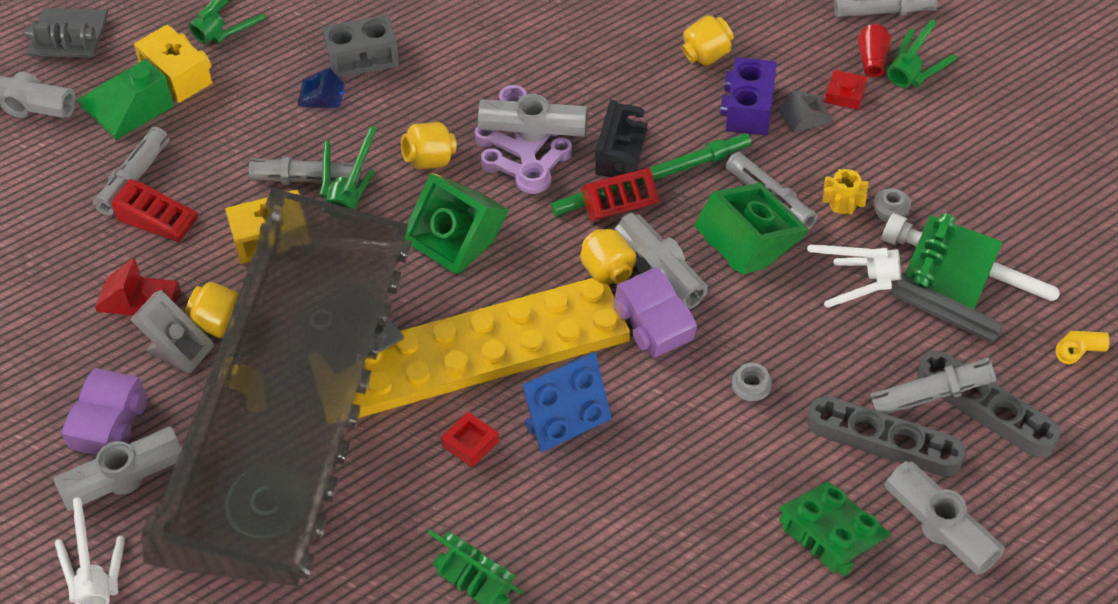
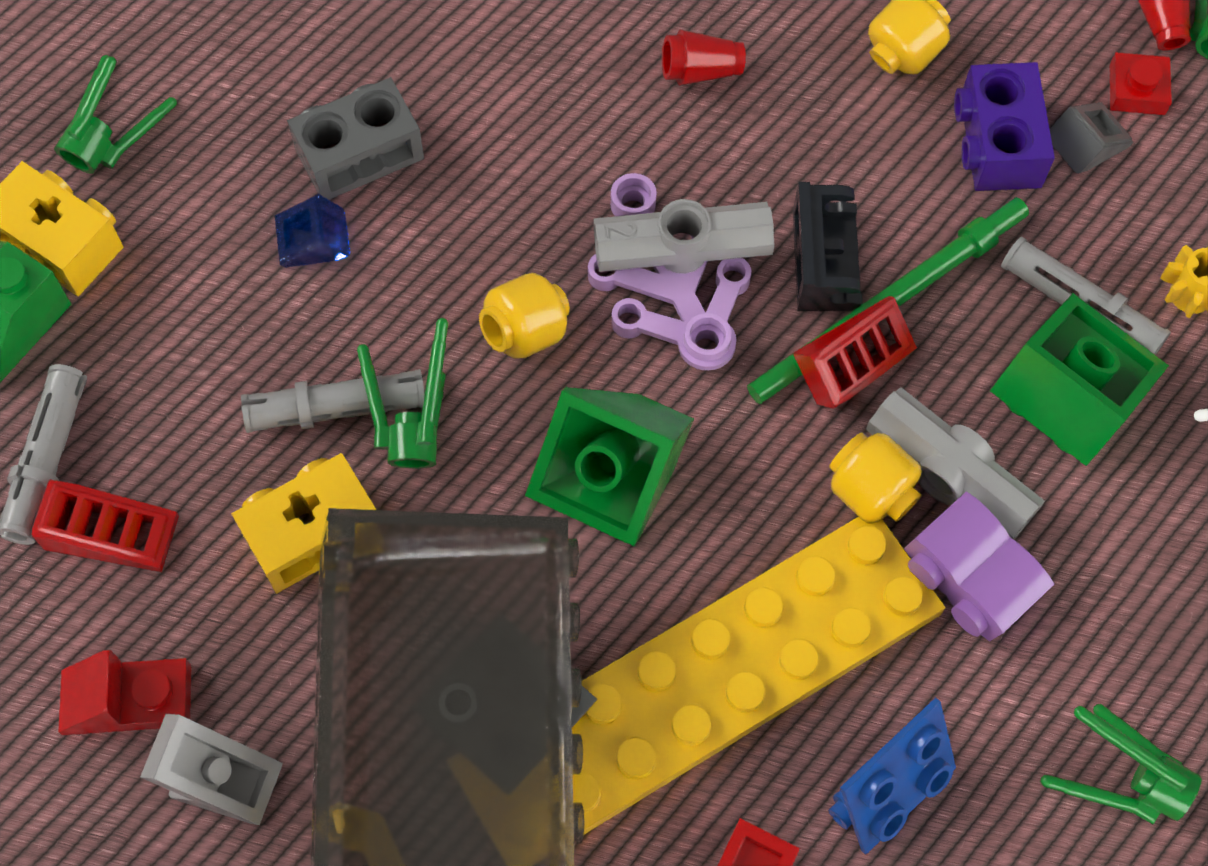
camera: 15 degrees left, 15 degrees up
(211, 308) = (268, 706): yellow head -> none
(578, 36) = (700, 57): none -> red cone
(731, 441) = (1160, 779): none -> green plant
(754, 374) = (1167, 649): light grey plate -> none

